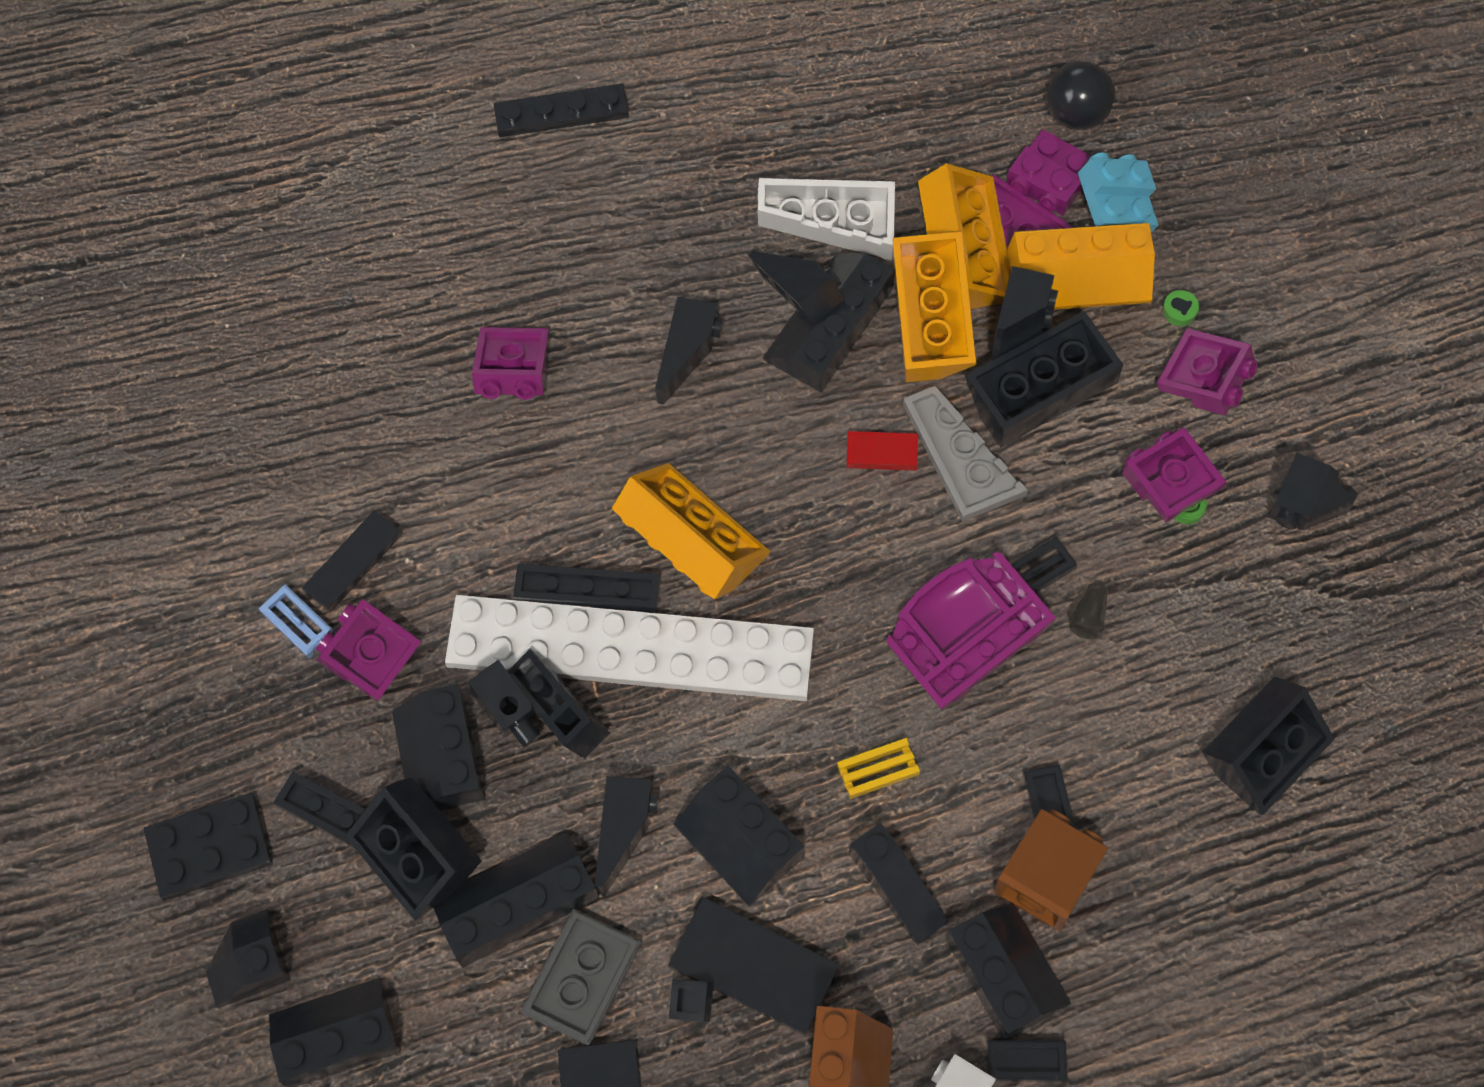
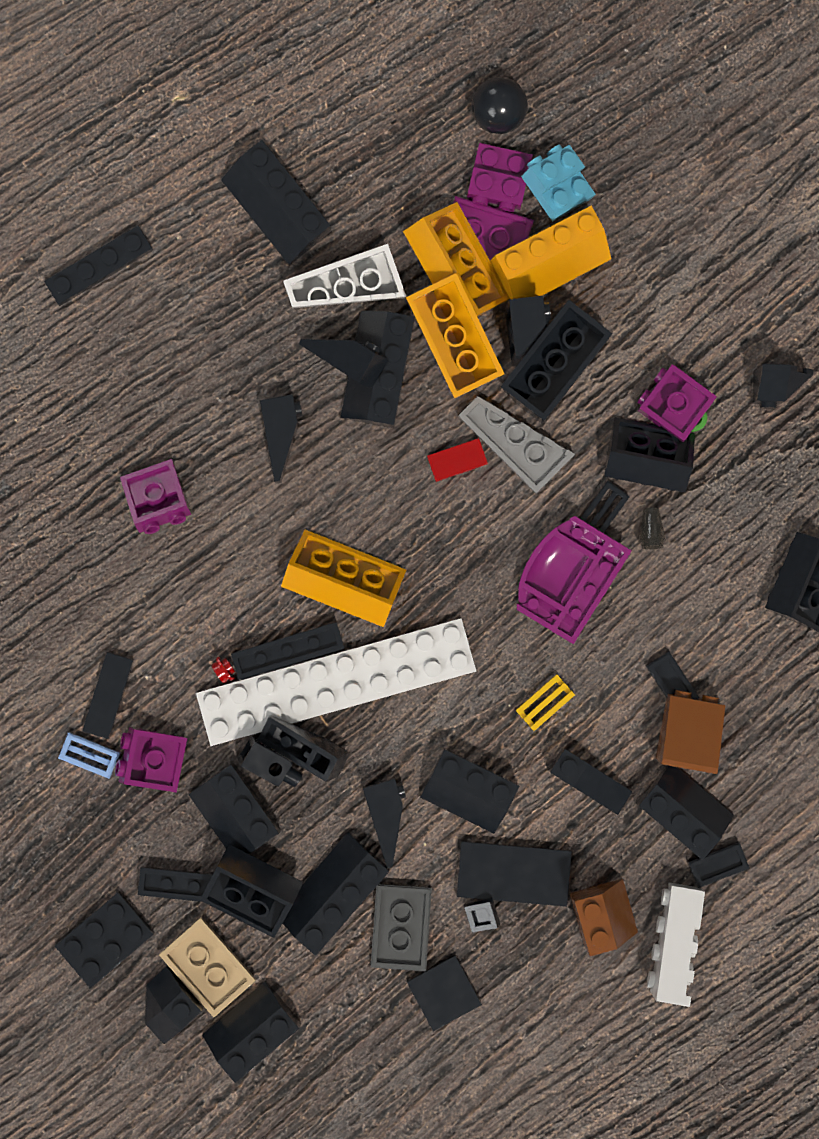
camera: 25 degrees left, 20 degrees up
(316, 928) = (207, 967): none -> tan plate
(501, 579) = (223, 669): none -> red plate
(787, 111) = (276, 203): none -> black slope
(1117, 525) = (649, 455): none -> black slope
(1180, 308) = (635, 258): bright green tile -> none
(1209, 371) = (673, 306): magenta plate -> none

